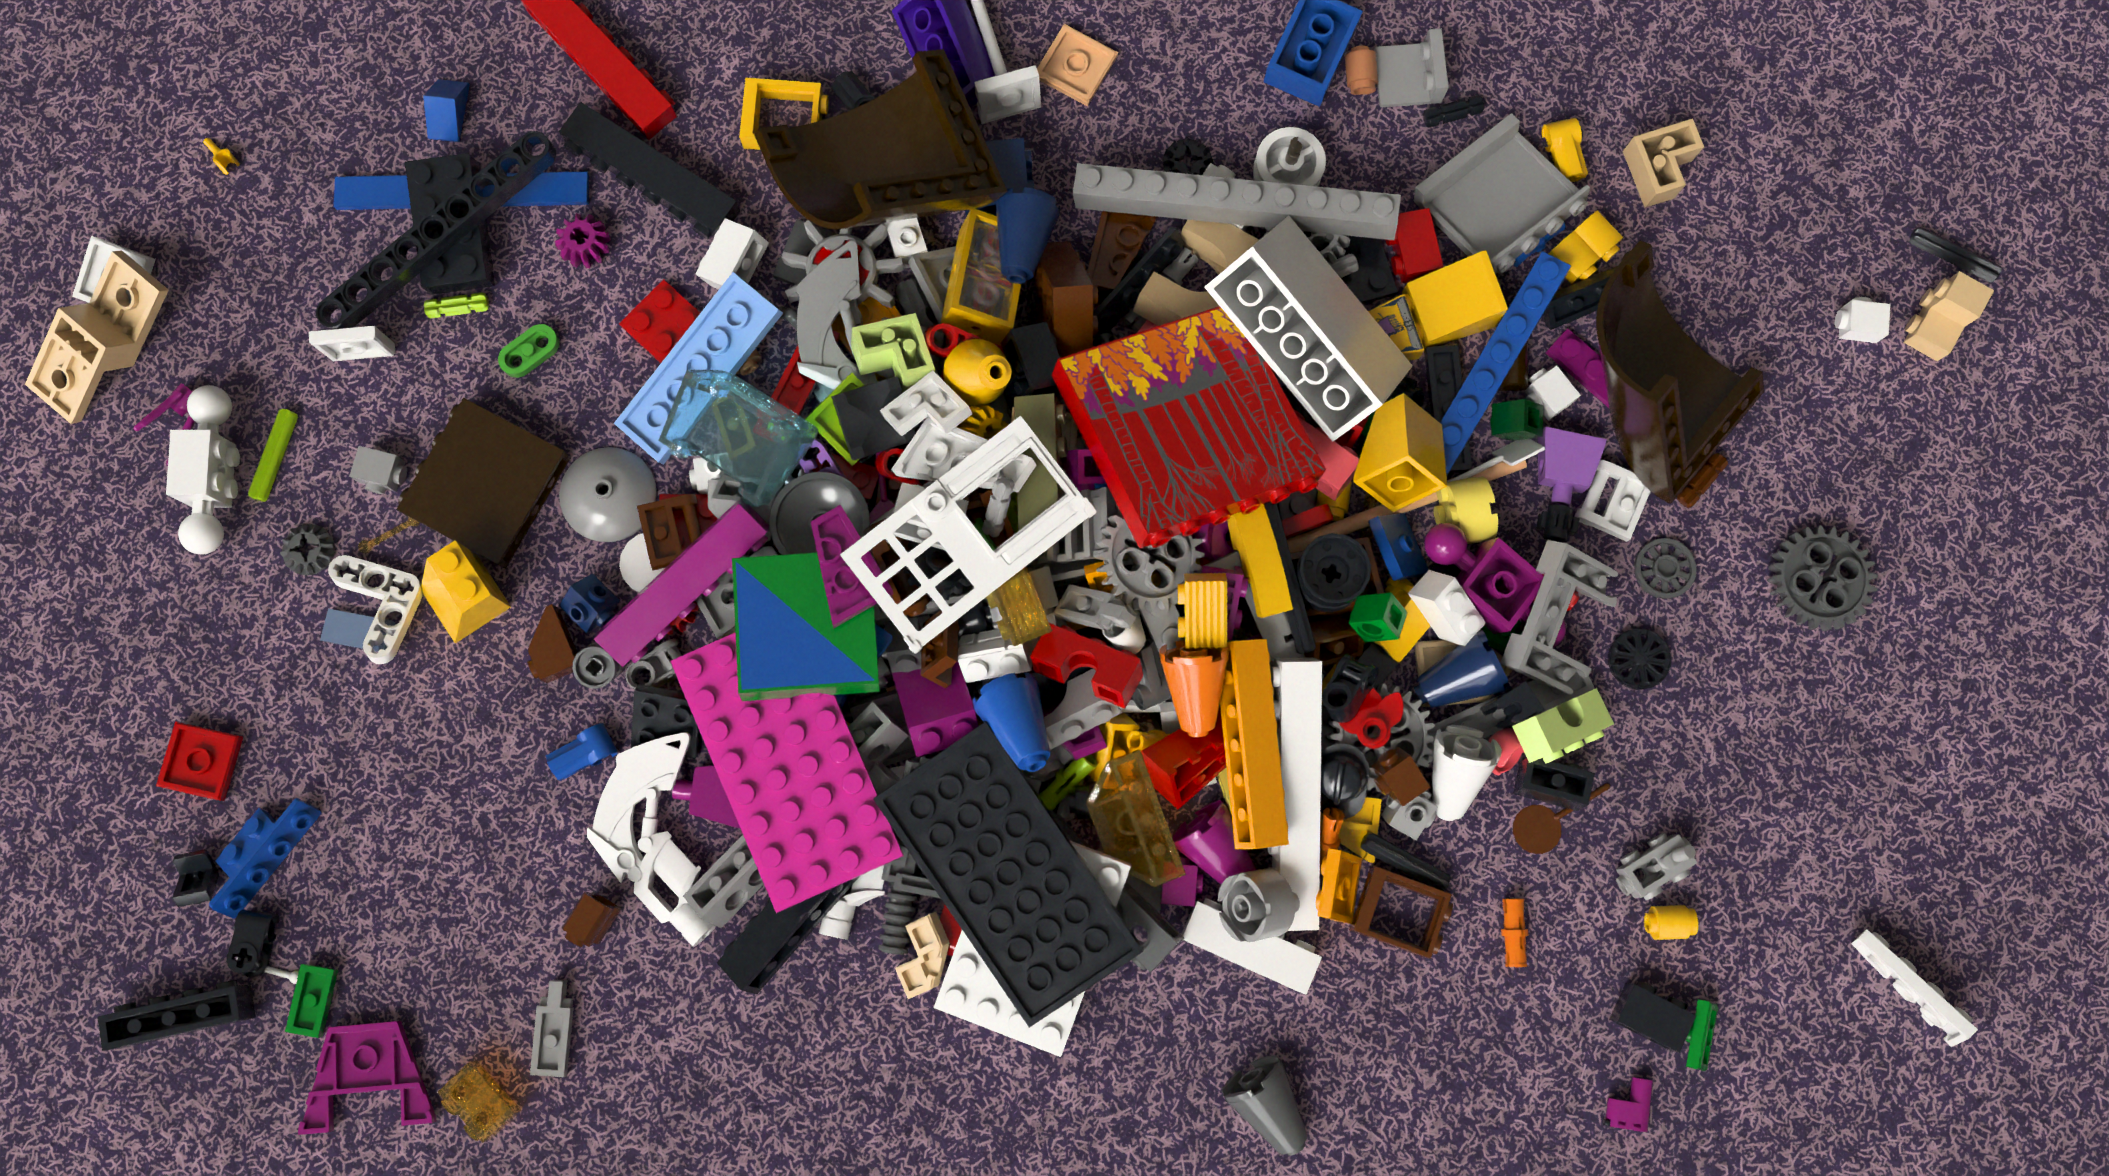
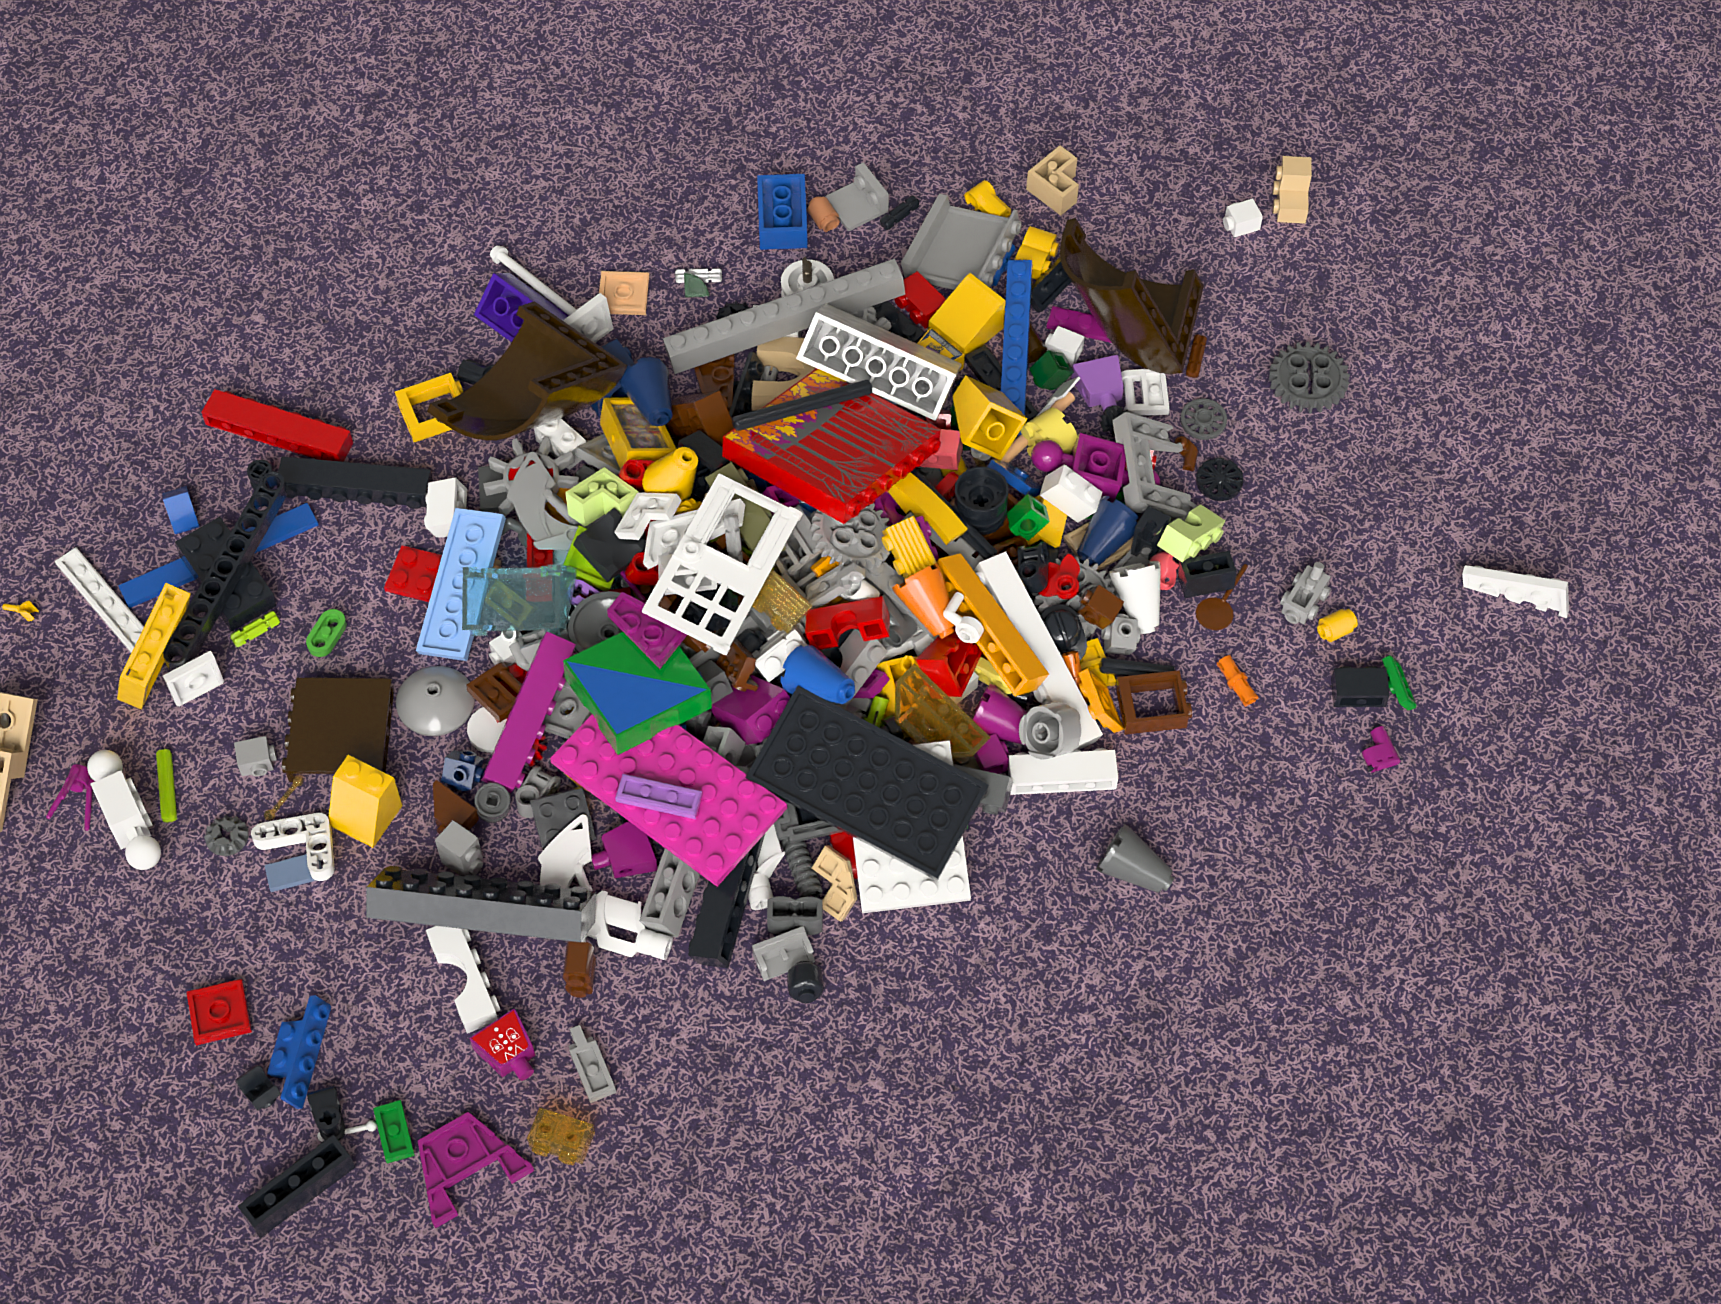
camera: 25 degrees left, 20 degrees down
(293, 306) = (147, 654): none -> yellow window
(315, 196) = (101, 597): none -> white tile
(474, 964) = (505, 1046): none -> torso
(477, 812) = (474, 1003): none -> white arch
(520, 791) = (481, 904): none -> brick
(534, 706) = (459, 850): none -> light grey brick
(555, 117) = (257, 470): none -> black wheel
(587, 750) = (514, 864): blue piece -> none
(590, 249) = (328, 545): magenta gear -> none
(762, 777) = (659, 796): none -> medium lavender tile
(824, 1008) = (782, 952): none -> light grey hinge
(830, 1057) = (805, 982): none -> black head
(849, 968) = (789, 914): none -> dark grey brick
(1161, 97) = (694, 286): none -> dark green tile
(1173, 83) = (702, 273): none -> axle
(1176, 357) = (802, 405): none -> black axle
(1220, 746) = (967, 627): none -> white plate
(1624, 606) = (1189, 453): none -> reddish brown arm
(1955, 254) = (1273, 156): black axle -> none

